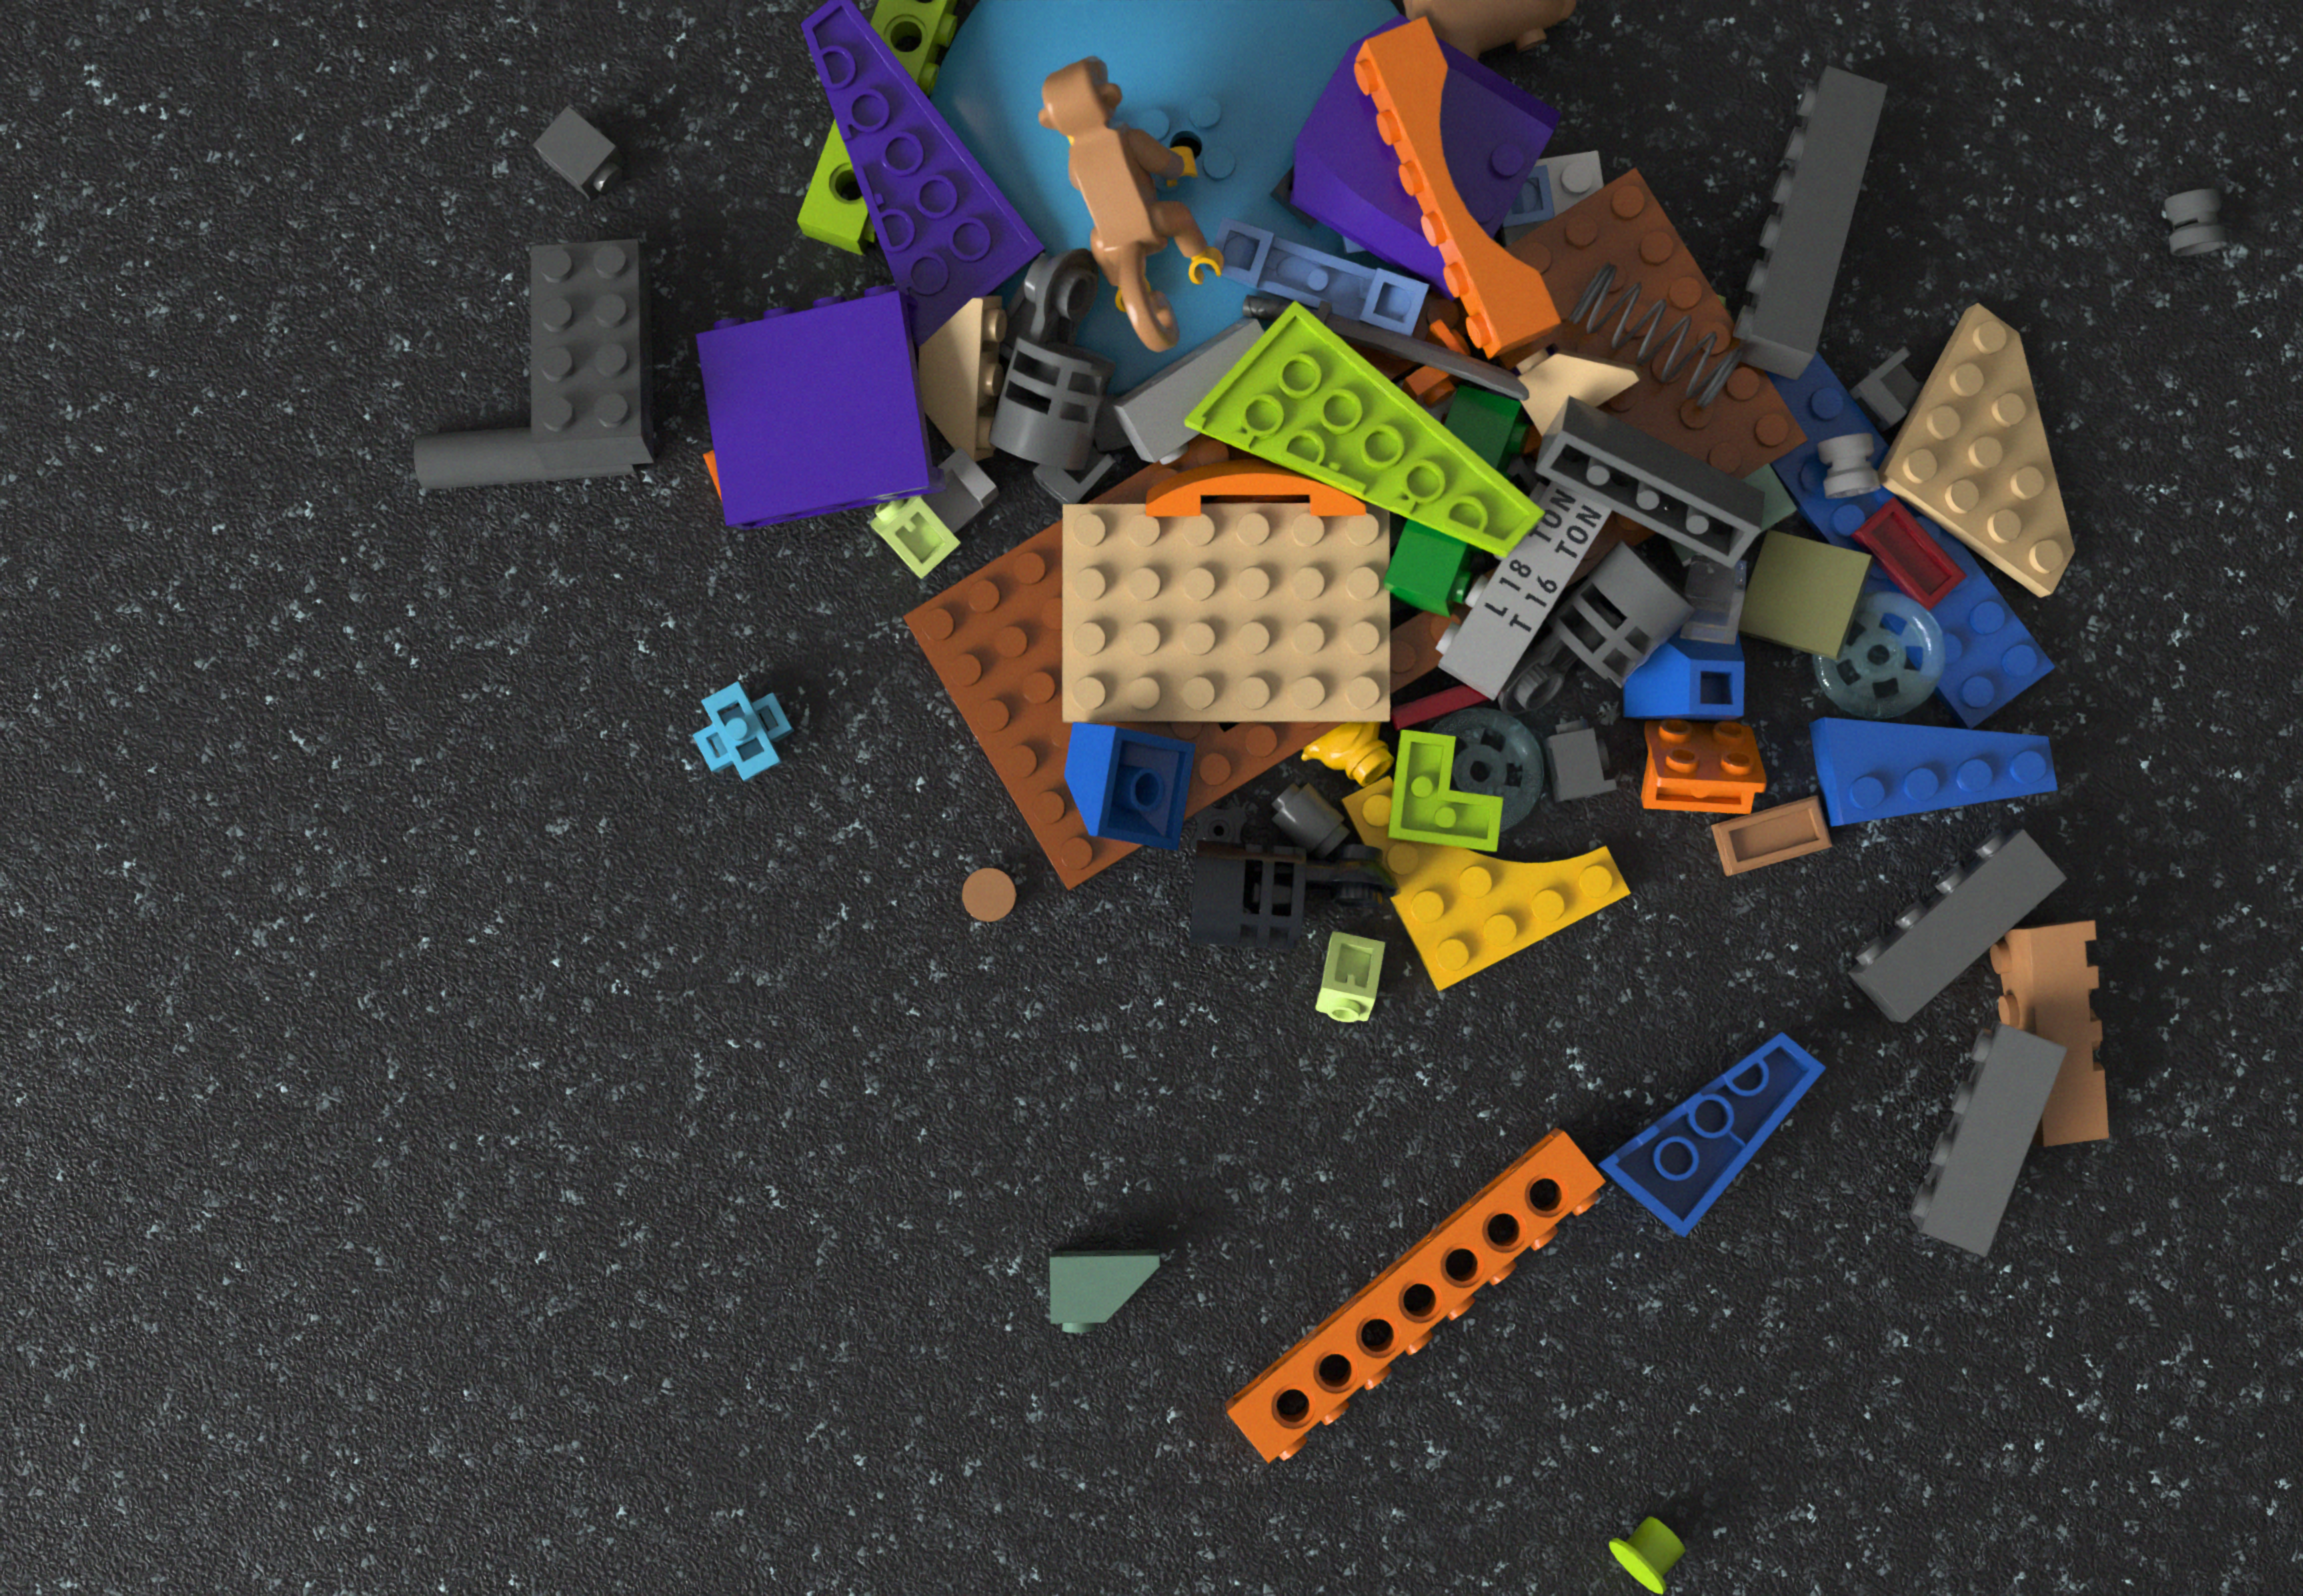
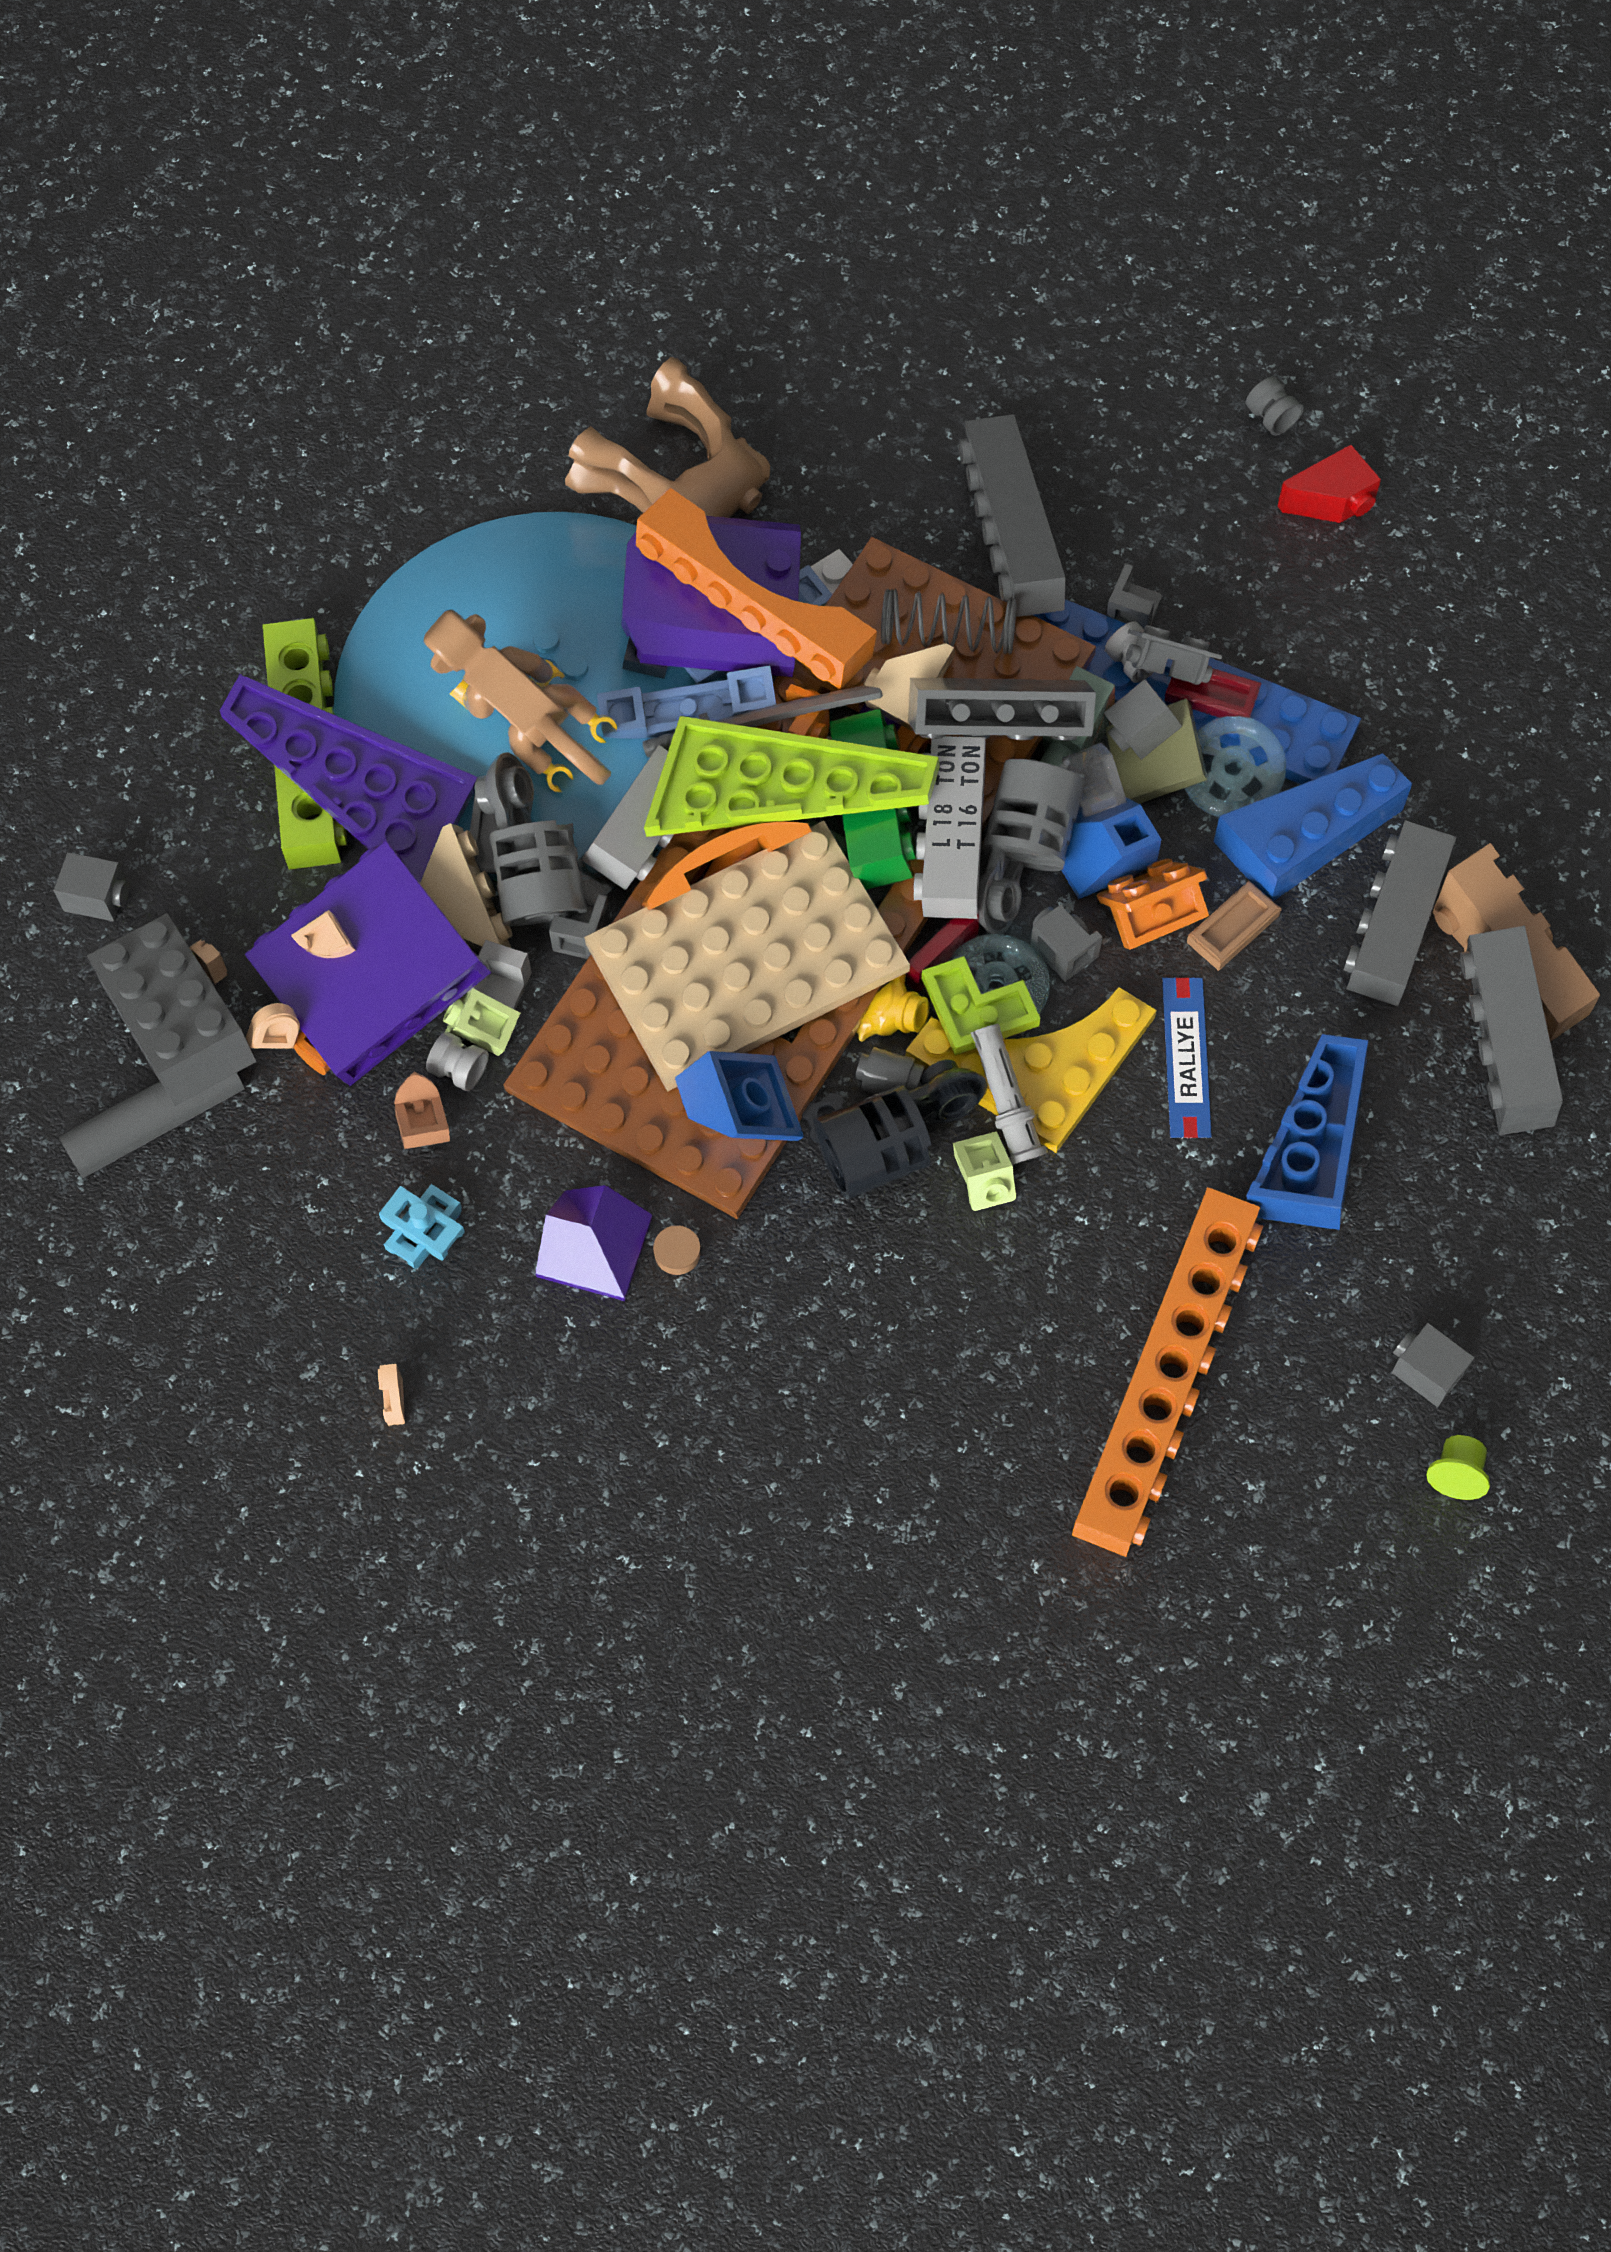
camera: 25 degrees left, 20 degrees down
(626, 896) = (392, 1385): none -> light nougat tile
(664, 304) = (210, 960): none -> light nougat tile
(684, 440) = (273, 1027): none -> light nougat tile
(783, 367) = (324, 937): none -> light nougat tile
(799, 608) = (420, 1113): none -> nougat plate
(865, 563) = (455, 1060): none -> light grey wheel
(907, 841) = (593, 1241): none -> dark purple slope
(1095, 1284) = (917, 1487): sand green slope -> none
(1410, 940) = (1014, 1115): none -> light grey pin
(1634, 956) = (1186, 1058): none -> sticker
(1684, 1431) = (1431, 1363): none -> dark grey brick
(1805, 557) = (1141, 720): none -> dark grey brick
(1900, 510) = (1154, 650): none -> dark grey hinge
(1981, 457) = (1220, 601): tan plate -> none
(2198, 365) = (1331, 488): none -> red slope

